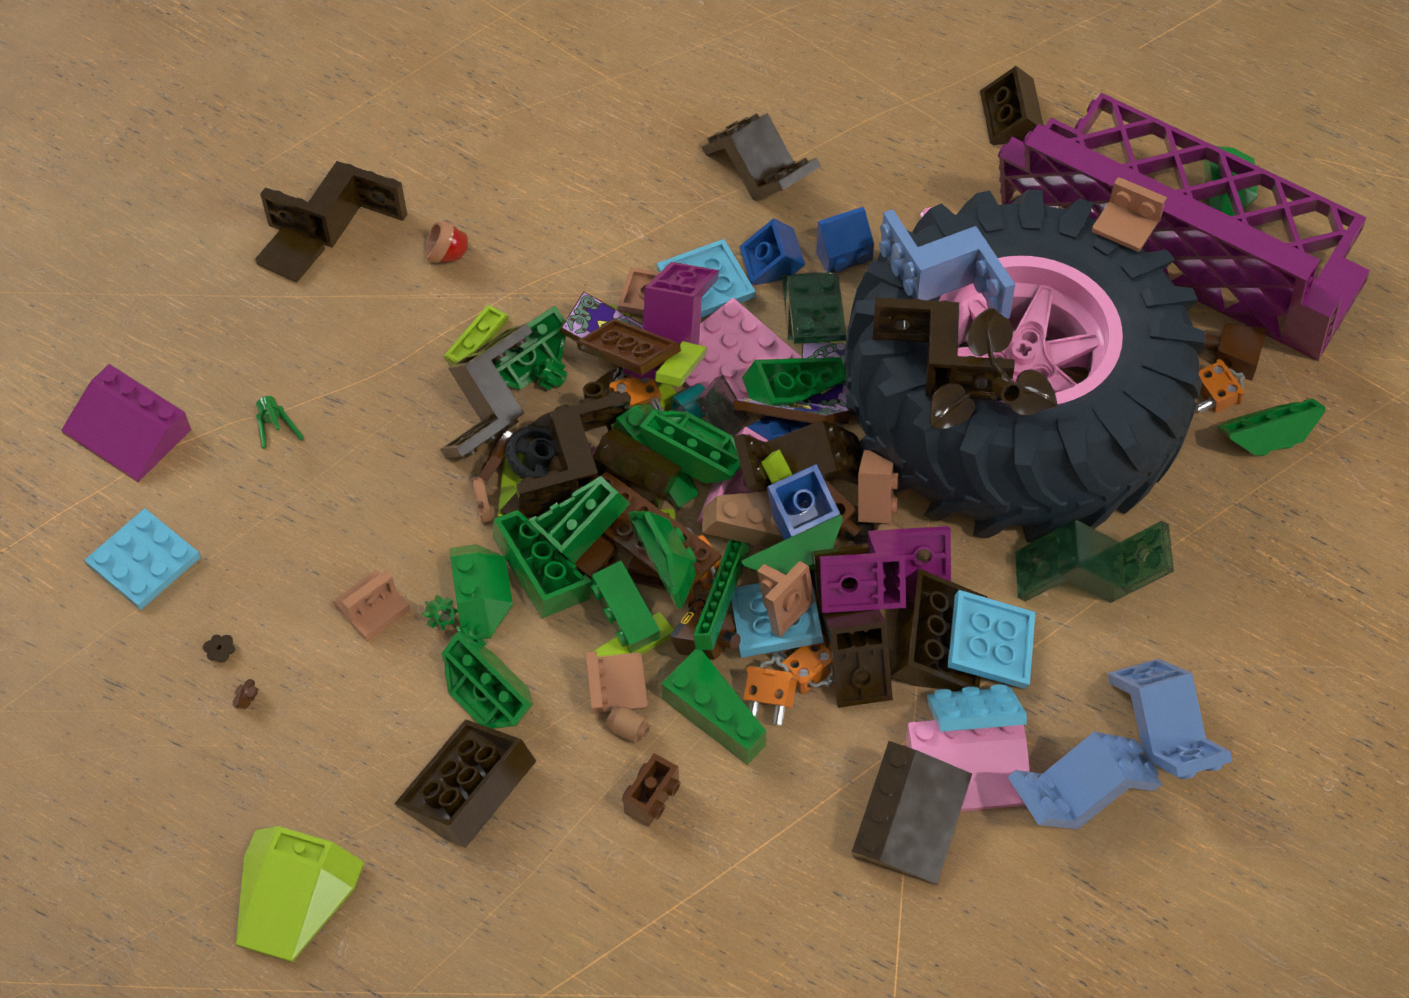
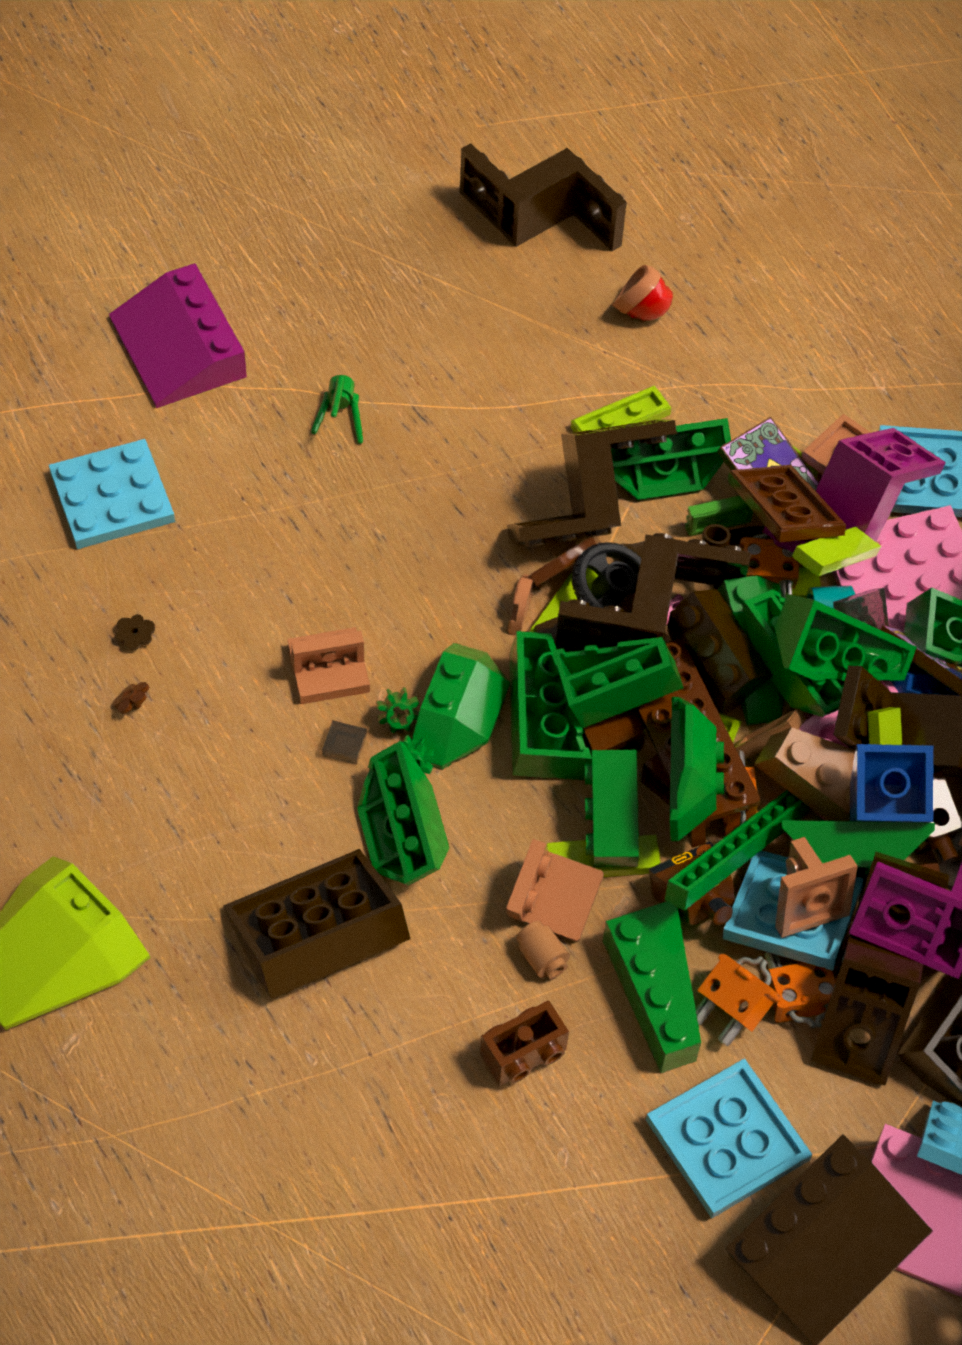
camera: 25 degrees right, 0 degrees up
(290, 254) = (464, 232): dark brown tile -> none
(413, 652) = (344, 742): none -> clear smoke tile
(551, 373) = (681, 495): green gear -> none
(581, 375) = (725, 512): none -> bright green tile
(694, 513) = (757, 739): none -> medium nougat tile
(710, 428) = (825, 641): none -> green wedge
(813, 783) = (728, 1138): none -> medium azure plate

